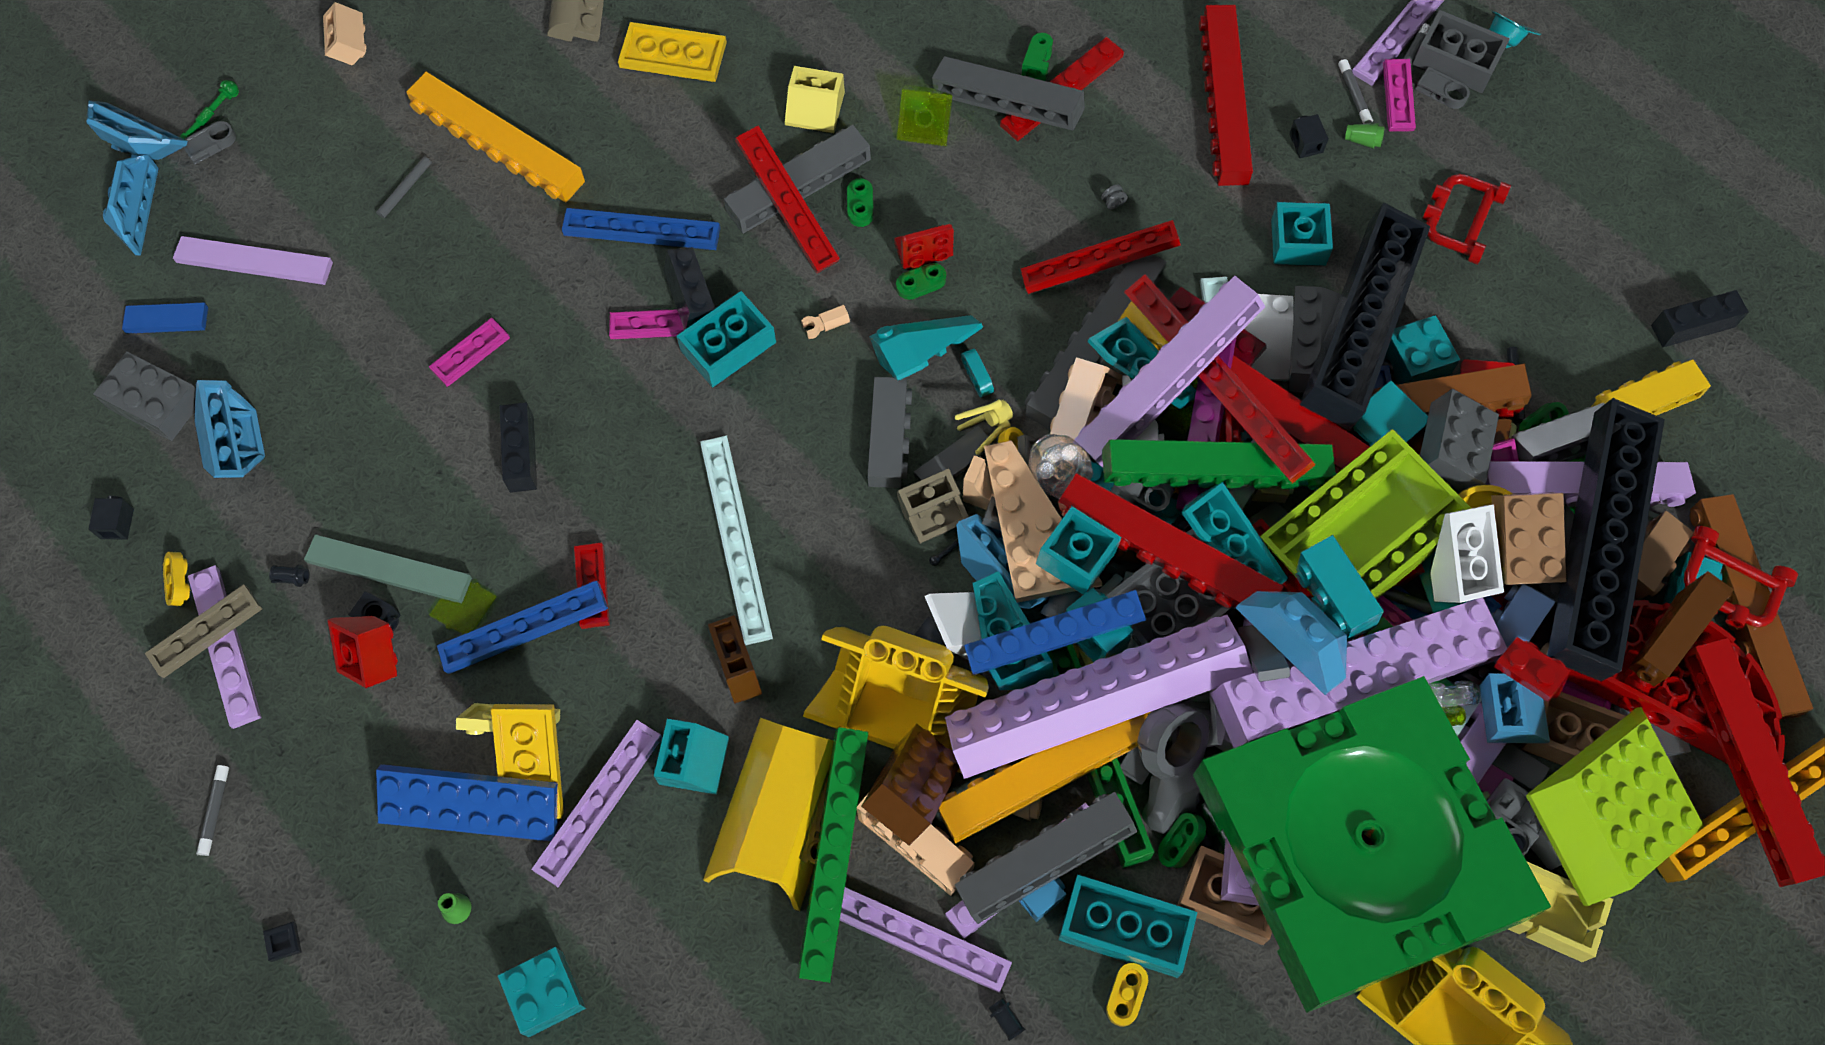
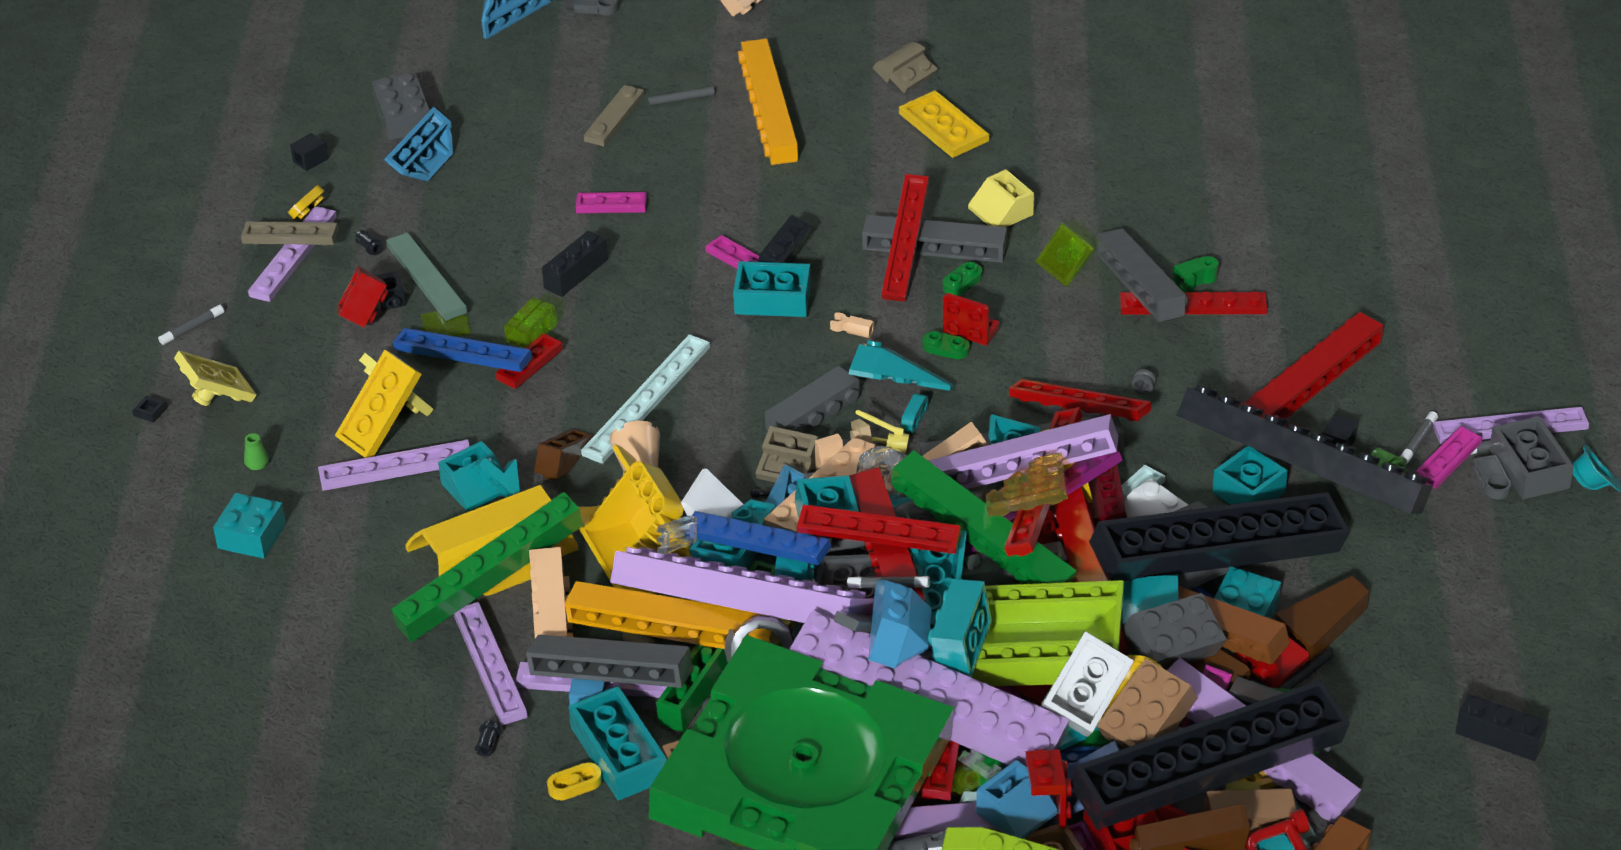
camera: 45 degrees right, 25 degrees down
(165, 318) = (460, 77): blue tile -> none
(253, 260) = (545, 79): lavender tile -> none
(322, 861) = (213, 378): none -> light yellow plate
(365, 254) = (614, 115): none -> dark tan plate
(467, 802) = (323, 408): blue plate -> none
(549, 544) = (530, 322): none -> clear neon green brick
(641, 229) = (798, 204): blue plate -> none
(725, 737) = (504, 480): none -> teal slope
(808, 609) = (639, 440): none -> light nougat cone
(912, 784) = (567, 555): reddish brown brick -> none
(974, 434) = (861, 431): none -> tan plate
(991, 689) = (677, 525): none -> clear tile
(1170, 546) = (879, 529): none -> red plate
(1233, 593) = (869, 582): none -> bar
(1238, 396) = (1034, 487): none -> clear yellow plate
(1318, 173) = (1310, 452): none -> black brick
(1441, 194) = (1377, 578): red bar -> none
(1482, 319) = (1325, 615): none -> reddish brown slope
(1662, 390) = (1396, 745): yellow brick -> none

